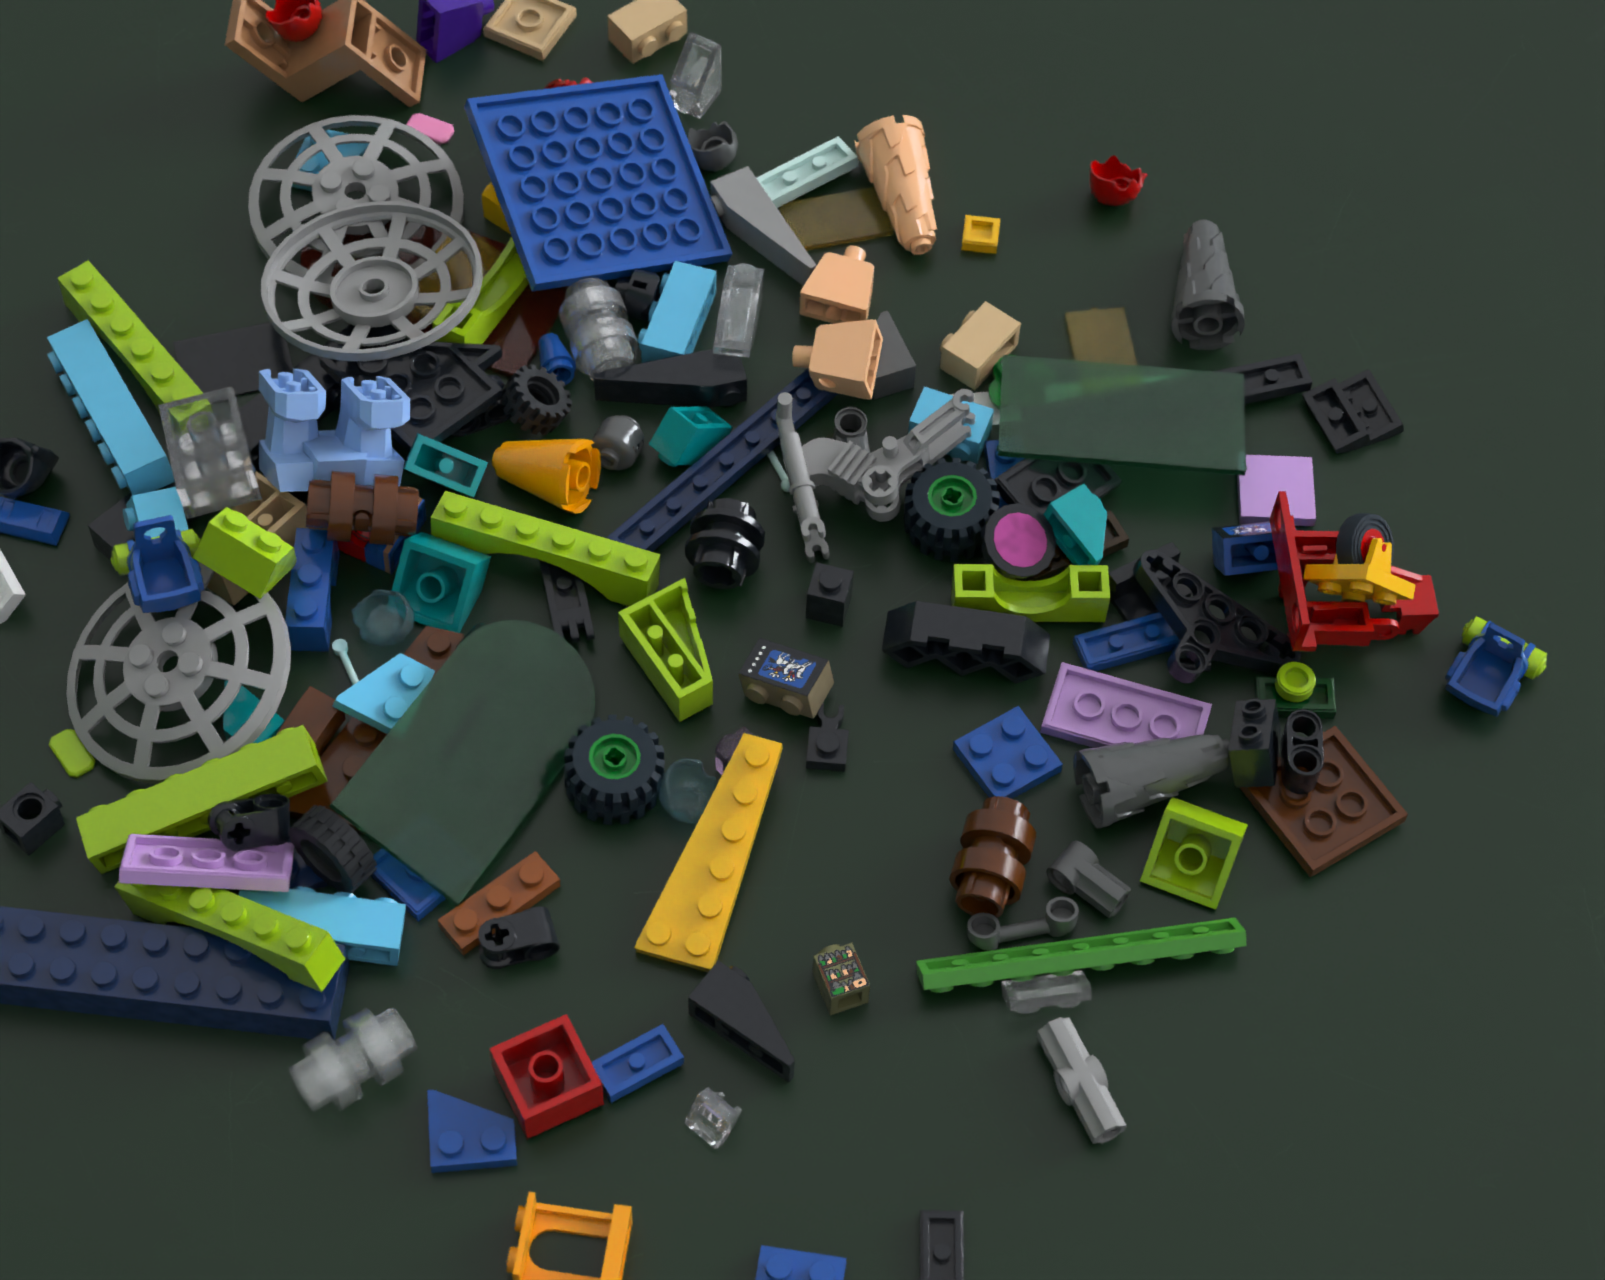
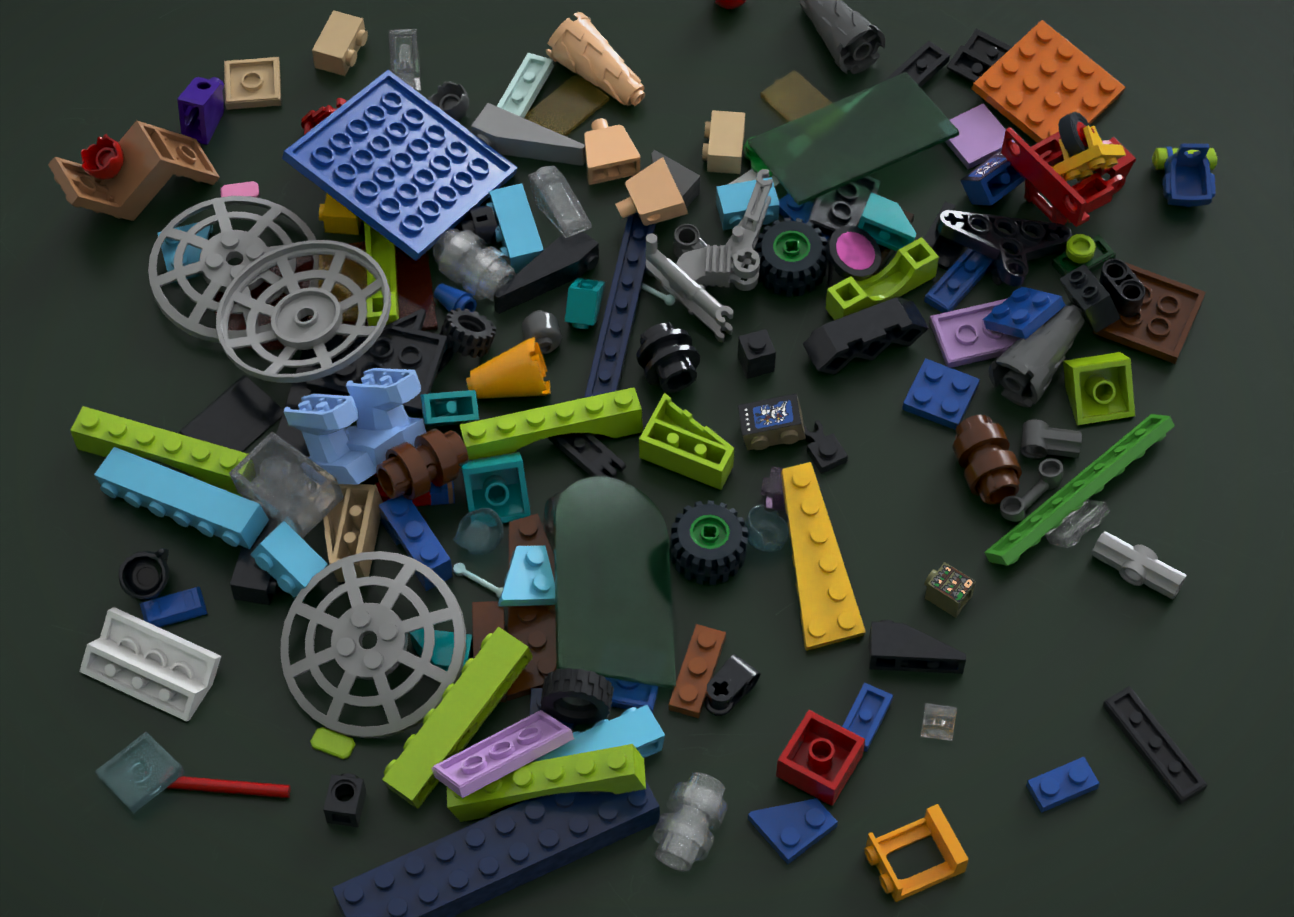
camera: 30 degrees left, 0 degrees up
(160, 567) = (320, 578): blue piece -> none
(244, 552) = (373, 535): lime slope -> none
(254, 821) = (507, 710): black piece -> none
(980, 234) = (667, 70): yellow tile -> none
(1162, 715) = (1023, 312): none -> blue plate
(1409, 471) = (1045, 81): none -> orange plate

